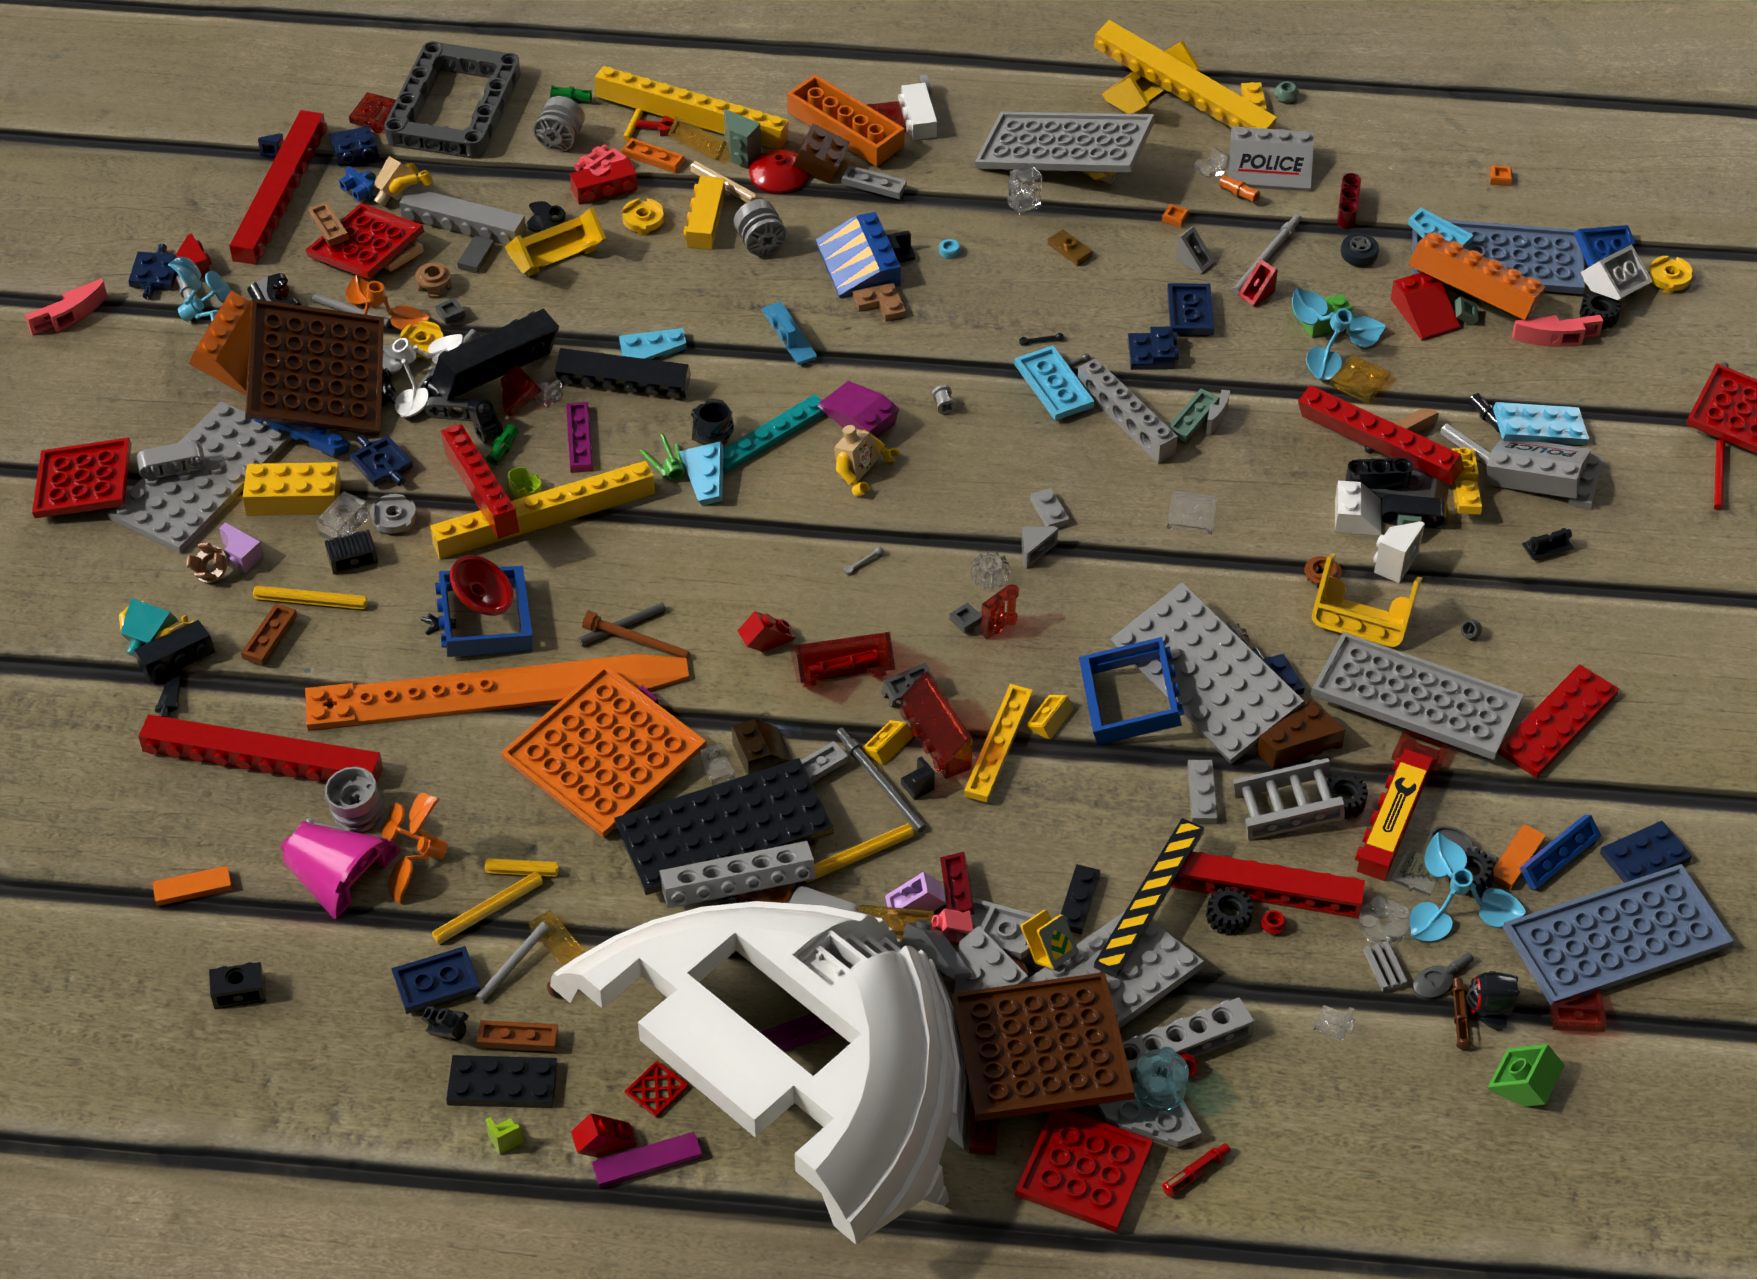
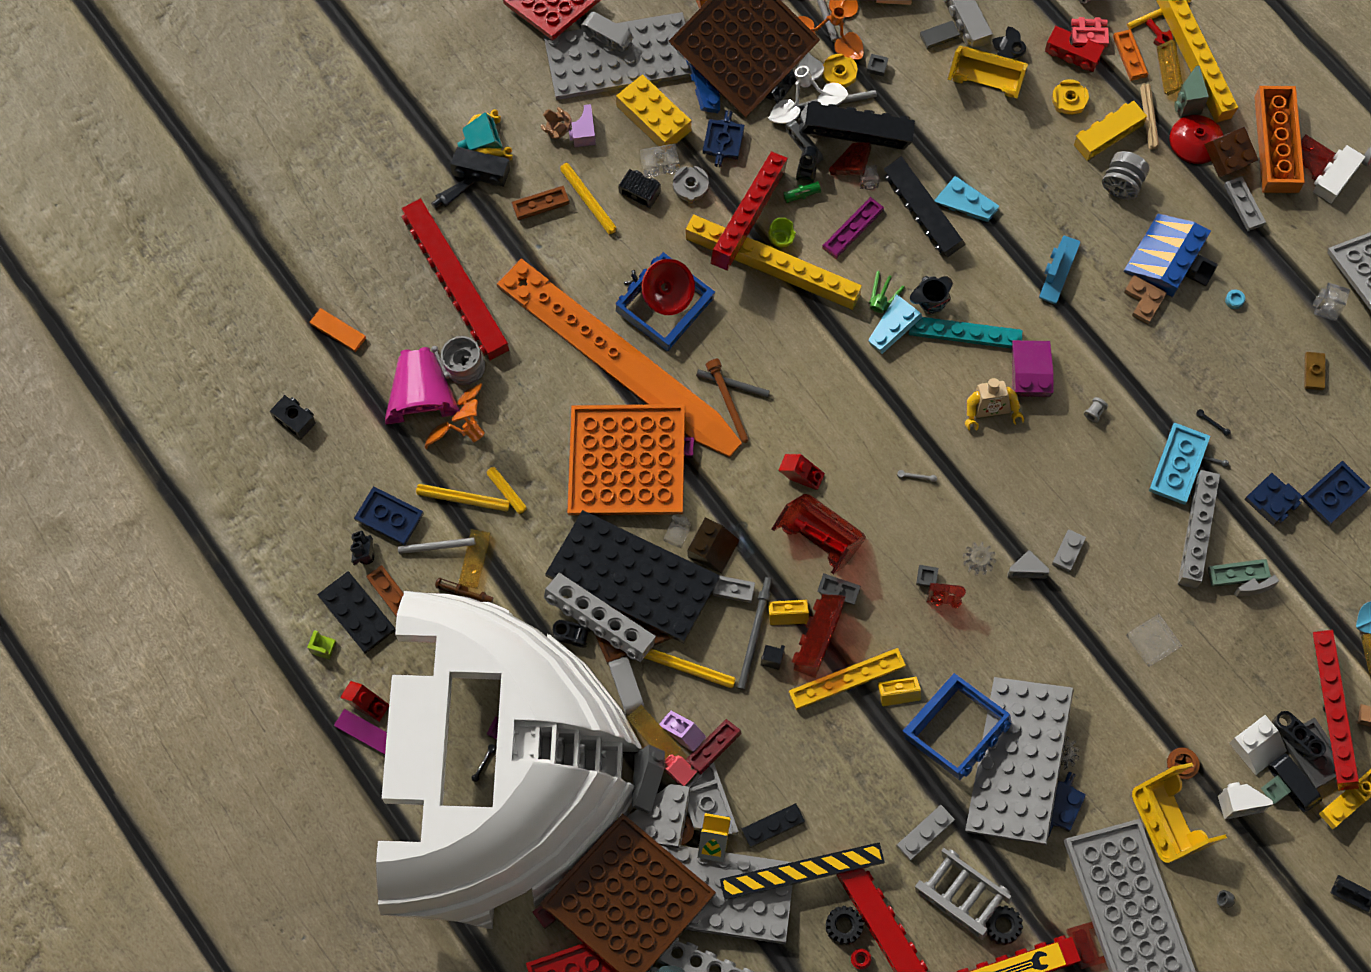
camera: 50 degrees right, 20 degrees up
(438, 276) = (887, 37): medium nougat piece -> none
(1299, 735) = (1024, 859): reddish brown wedge -> none

